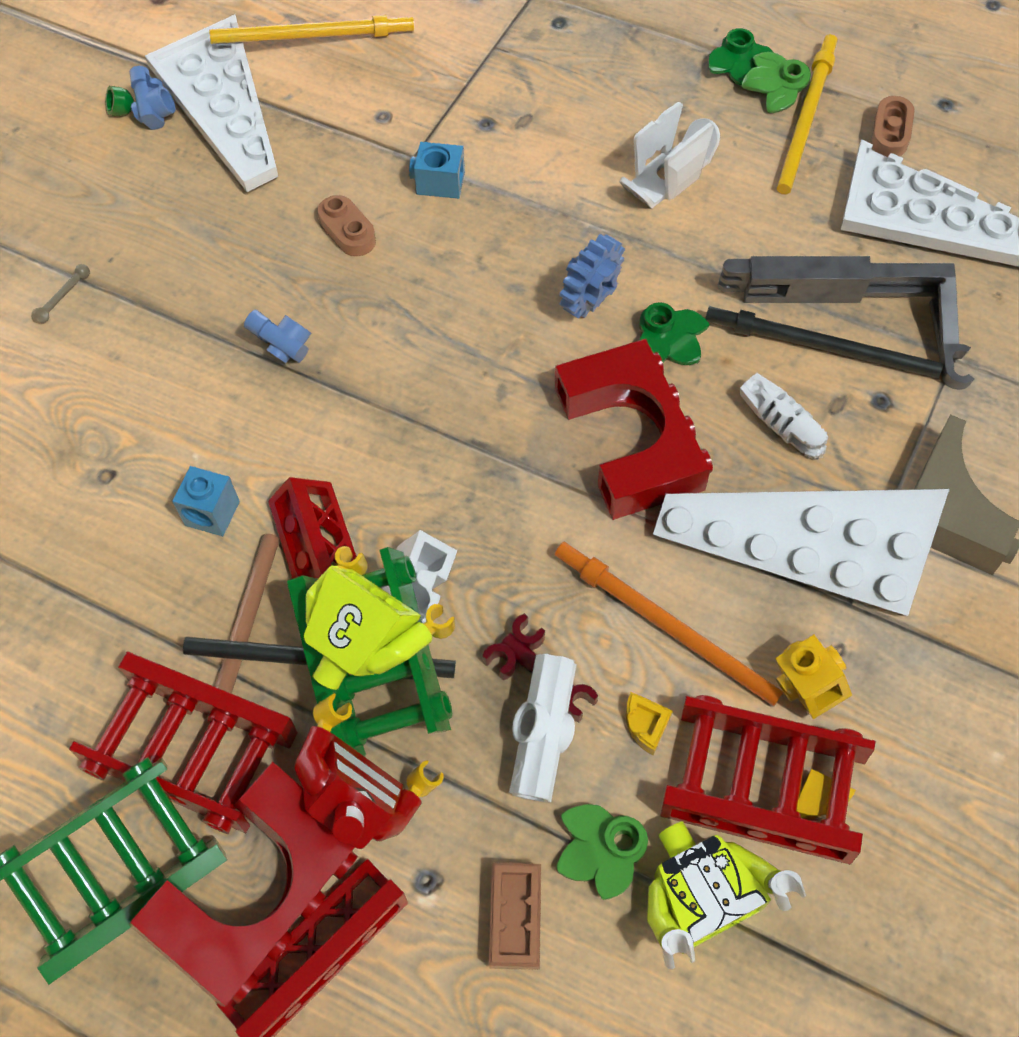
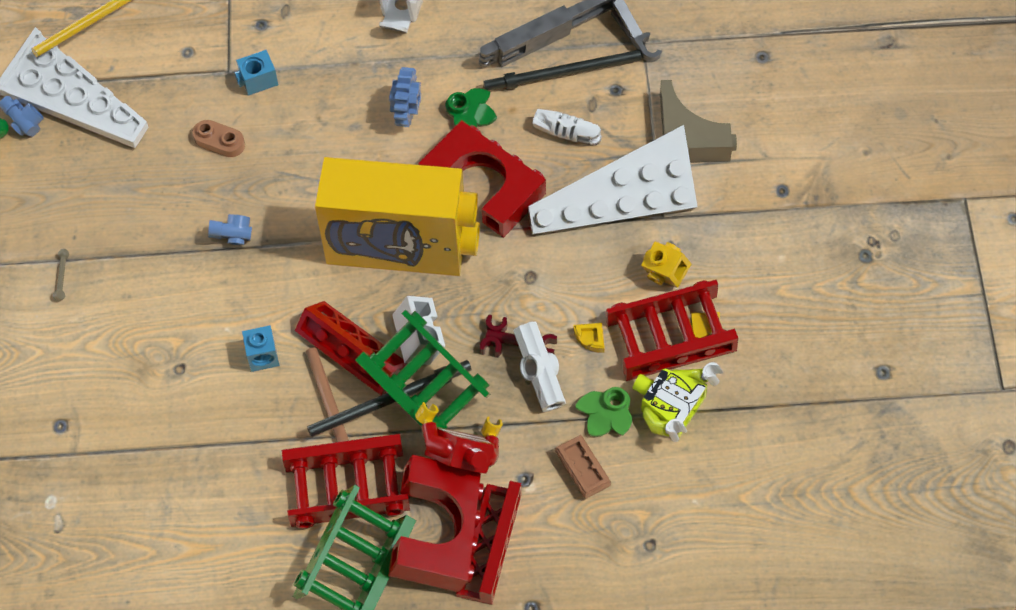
camera: 30 degrees left, 0 degrees up
(362, 625) = (415, 358): neon yellow torso -> none
(469, 412) = (396, 216): none -> yellow brick
(596, 574) = (514, 271): orange bar -> none

